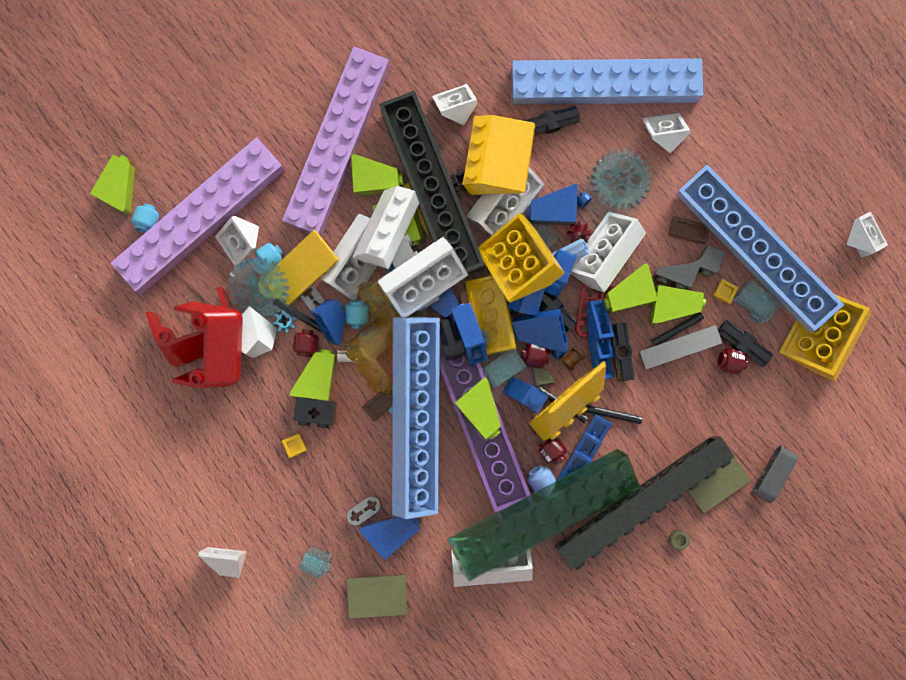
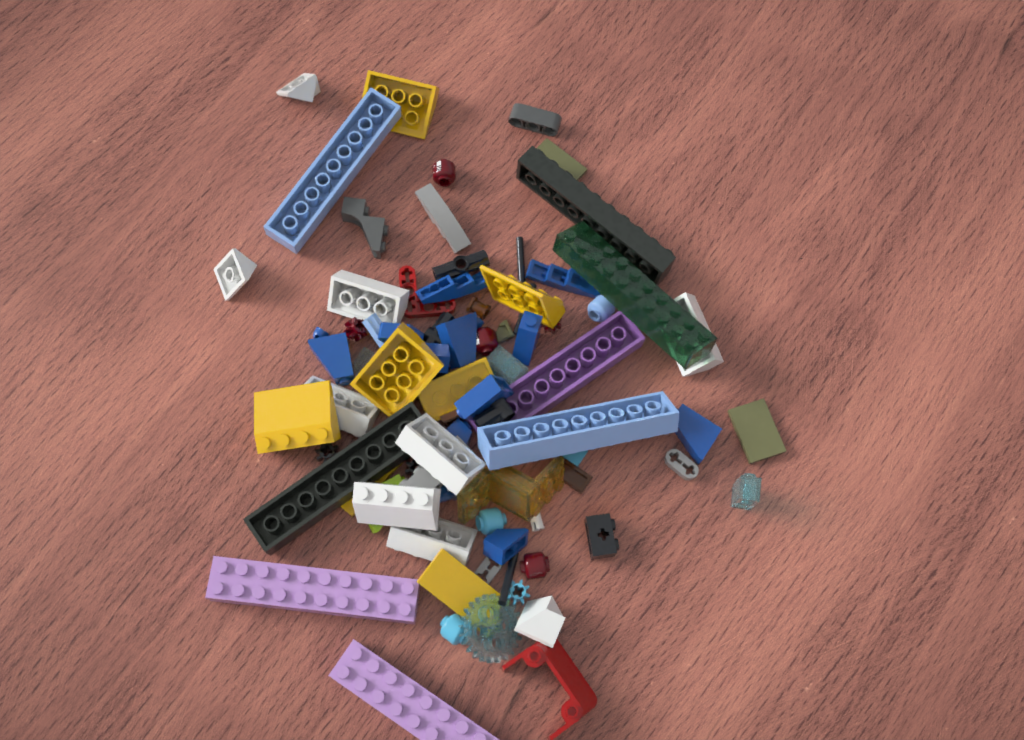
camera: 105 degrees left, 15 degrees down
(221, 345) = (547, 643): red windscreen -> none
(224, 561) = (775, 583): white slope -> none
(238, 239) = (445, 666): white slope -> none
(294, 445) = (640, 550): yellow tile -> none
(317, 377) = (566, 544): lime slope -> none
(373, 177) = (343, 540): lime slope -> none
(456, 103) = (246, 477): white slope -> none
(481, 409) = (553, 370): lime slope -> none
(552, 451) = (573, 304): dark red head -> none
(553, 120) = (244, 378): black piece -> none
(606, 81) = (195, 341): light blue brick -> none
(632, 192) = (280, 316): clear light blue gear -> none
(632, 292) = (401, 268): lime slope -> none
(675, 304) = (404, 232): lime slope -> none
(677, 329) = (425, 225): black bar -> none
(679, 539) = (616, 184): olive tile -> none
(689, 230) = (328, 236): reddish brown tile -> none
(725, 291) = (379, 193): yellow tile -> none
(745, 342) = (423, 166): black piece -> none
(756, 302) = (383, 164): clear light blue brick -> none

